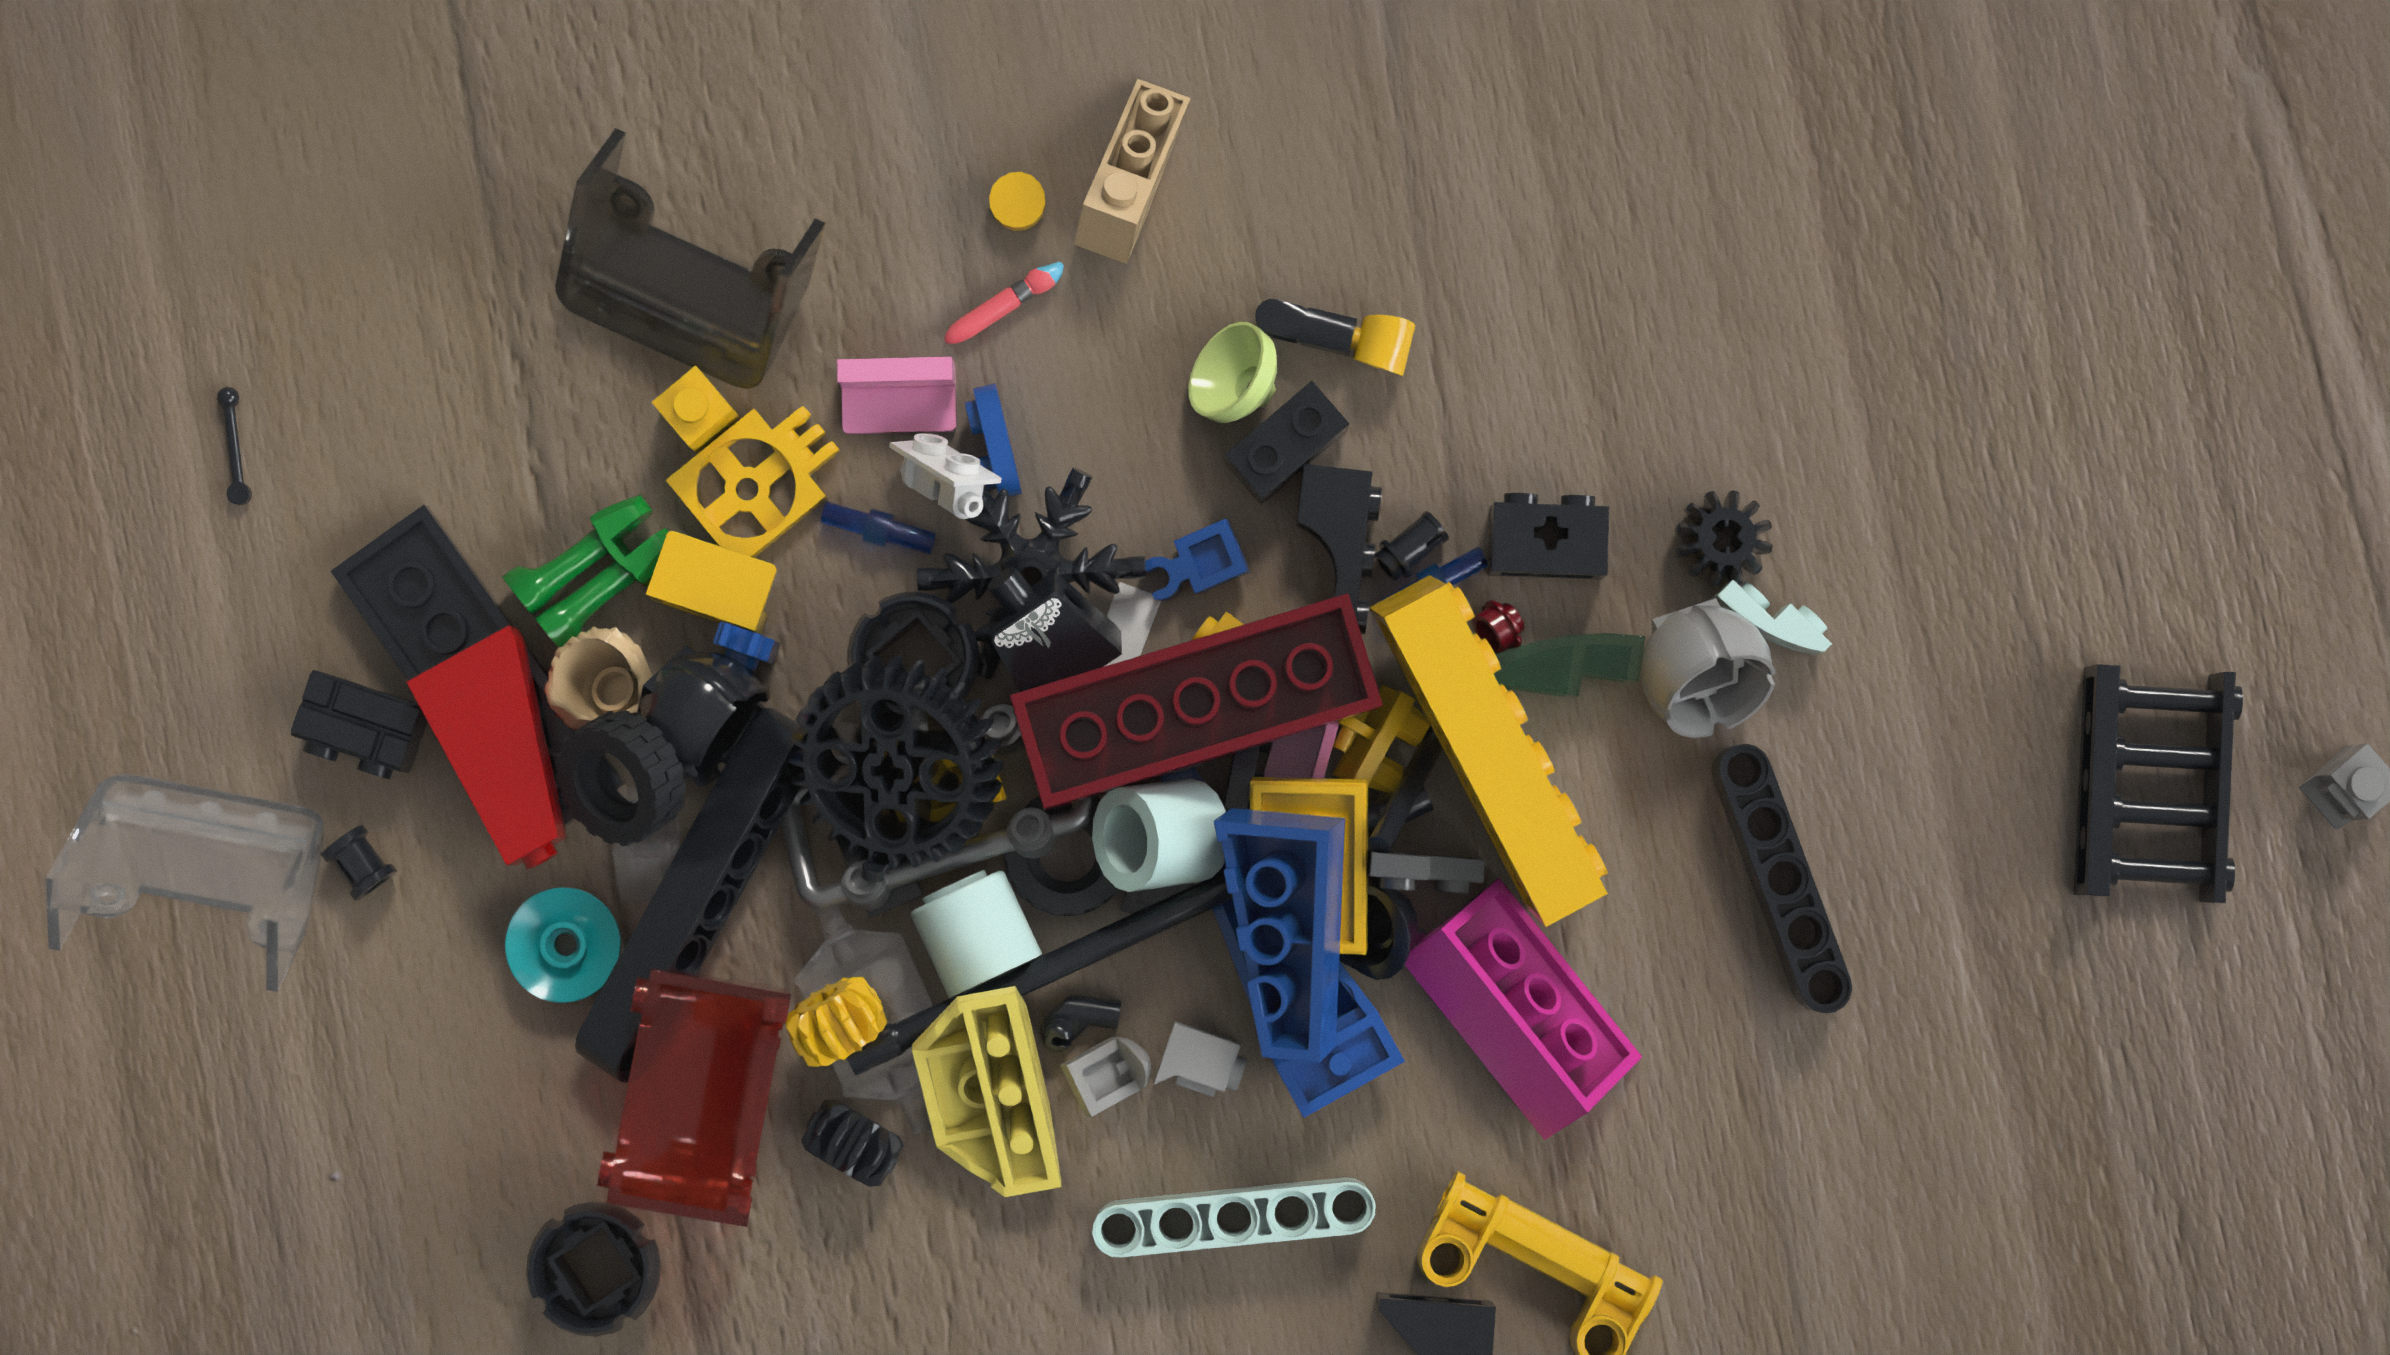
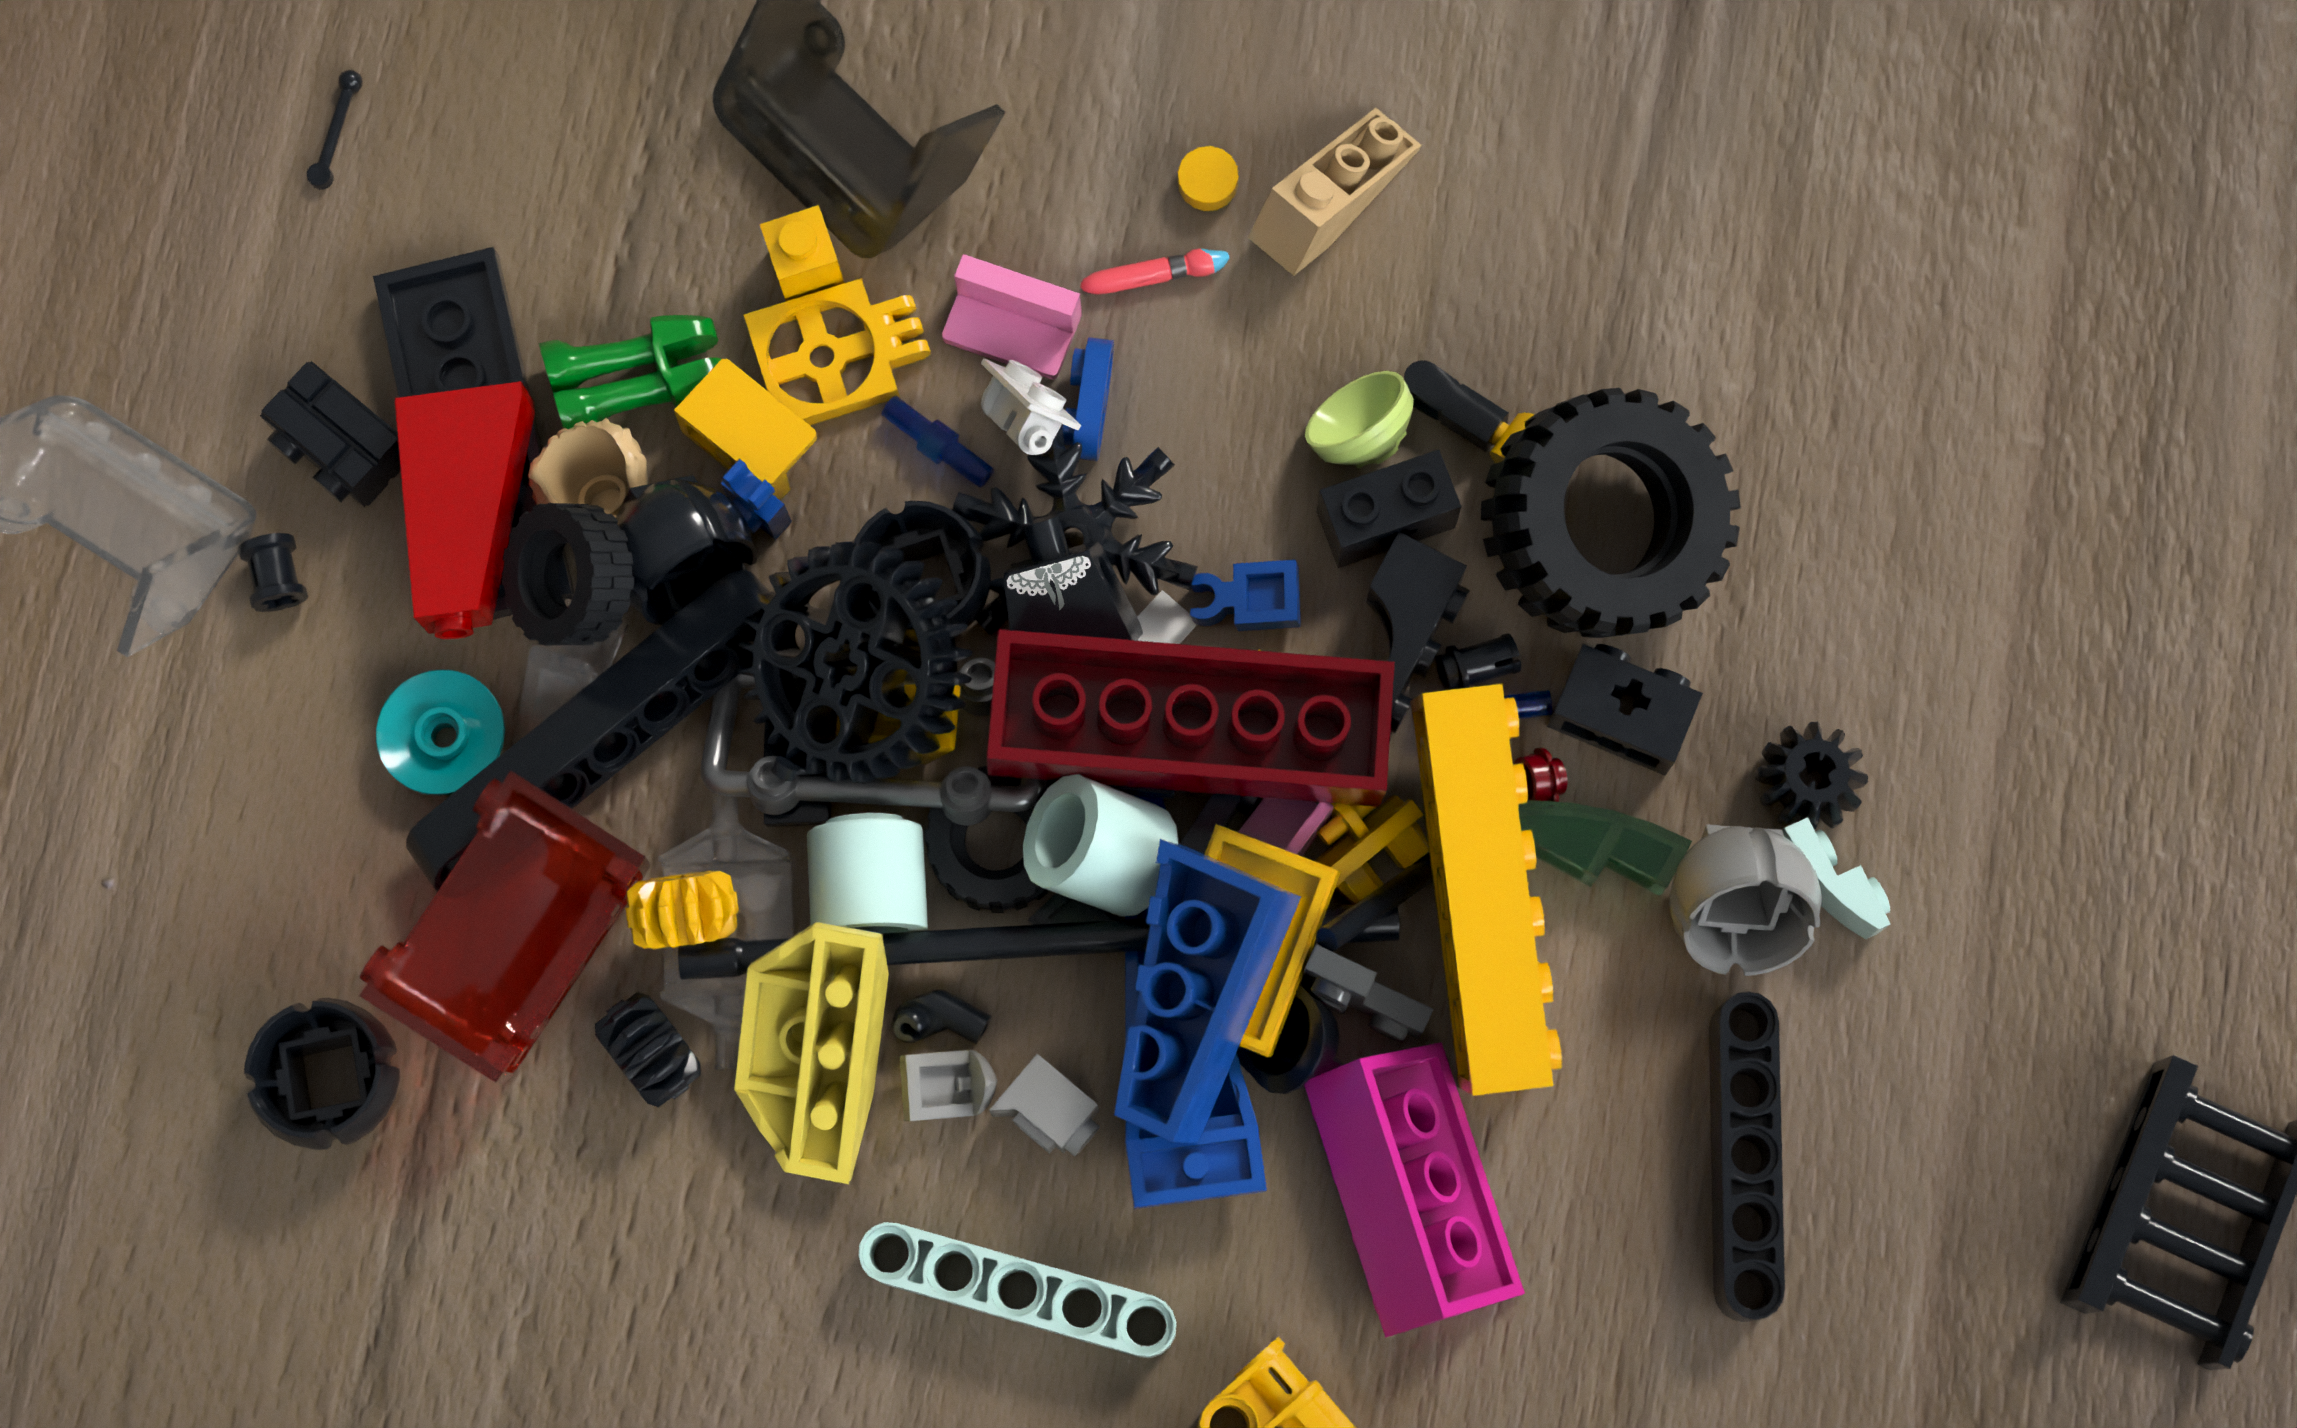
camera: 25 degrees right, 10 degrees down
(1546, 372) = (1686, 498): none -> black tyre

